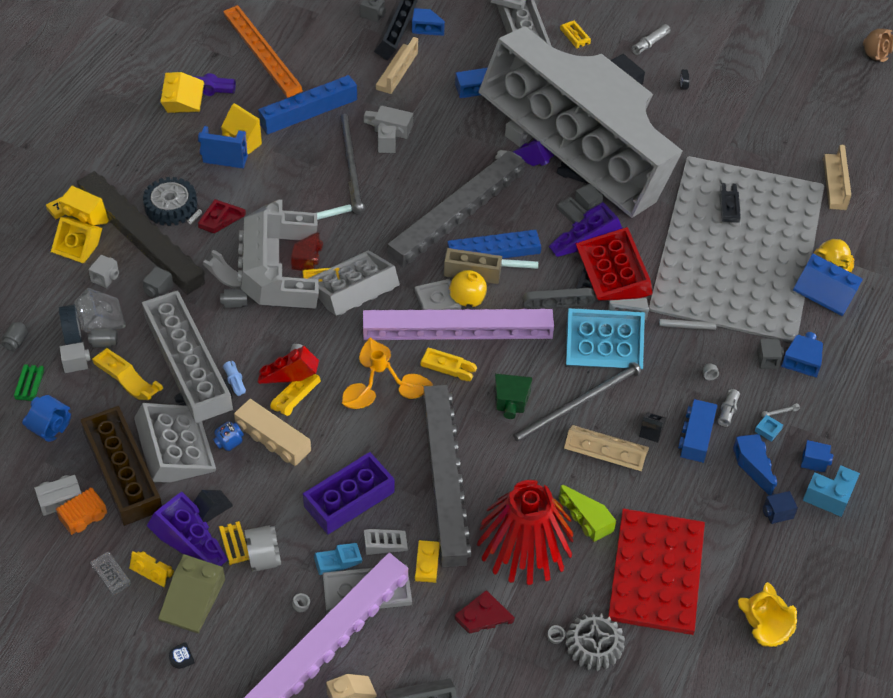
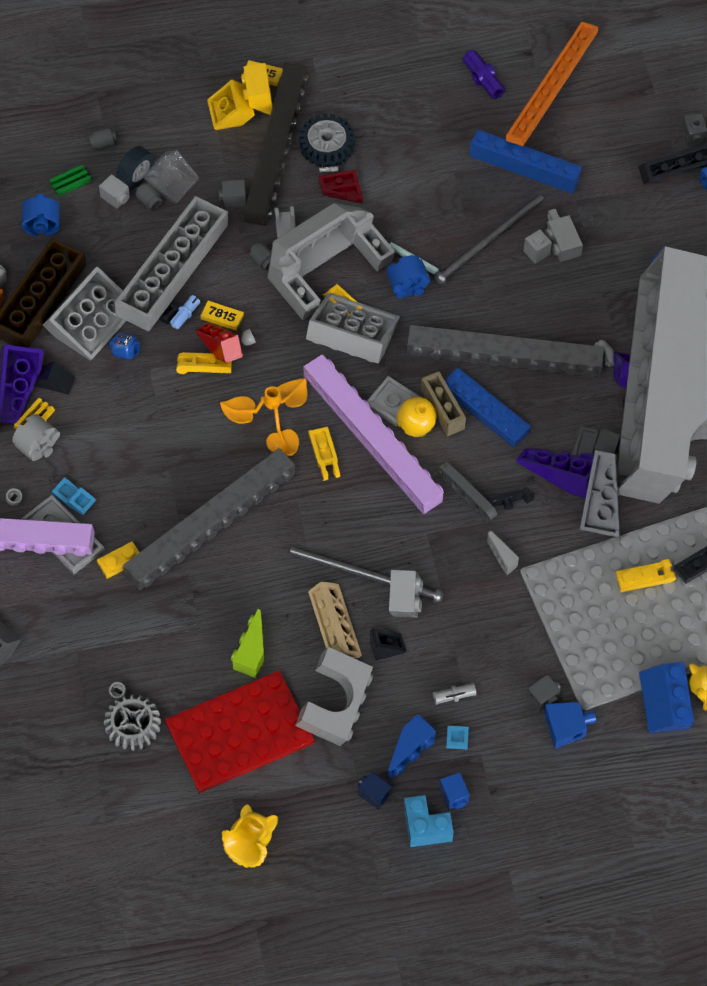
camera: 55 degrees right, 10 degrees up
(103, 271) = (215, 149): light grey brick -> none
(126, 375) = (127, 237): yellow piece -> none
(181, 93) = (449, 62): yellow slope -> none
(223, 149) = (417, 147): blue panel -> none
(242, 120) = (444, 135): yellow slope -> none
(259, 357) = (222, 315): none -> yellow tile
(272, 432) = (152, 373): tan brick -> none
(305, 253) = (355, 273): clear red slope -> none
(344, 221) = (408, 277): none -> blue brick
(348, 493) = (134, 463): dark purple brick -> none
(377, 535) = (105, 508): light grey slope -> none
(398, 67) = (639, 198): tan fence -> none
(483, 613) = (101, 628): dark red wing -> none
(512, 394) = (330, 518): dark green torso -> none
(519, 264) = (480, 432): light aqua bar -> none
(528, 515) = (191, 597): red plant -> none
(604, 338) = (450, 553): medium azure slope -> none
(615, 266) = (538, 513): red slope -> none
(626, 381) = (404, 593): none -> light grey brick
(643, 223) = (602, 499): none -> wedge
(671, 461) = (354, 678): none -> light grey arch
(687, 324) = (527, 610): light grey bar -> none
(697, 430) = (407, 682): blue brick -> none
(710, 371) = (484, 657): light grey hinge -> none
(715, 240) = (645, 576): none -> yellow plate
(795, 407) = (474, 728): light grey hinge -> none

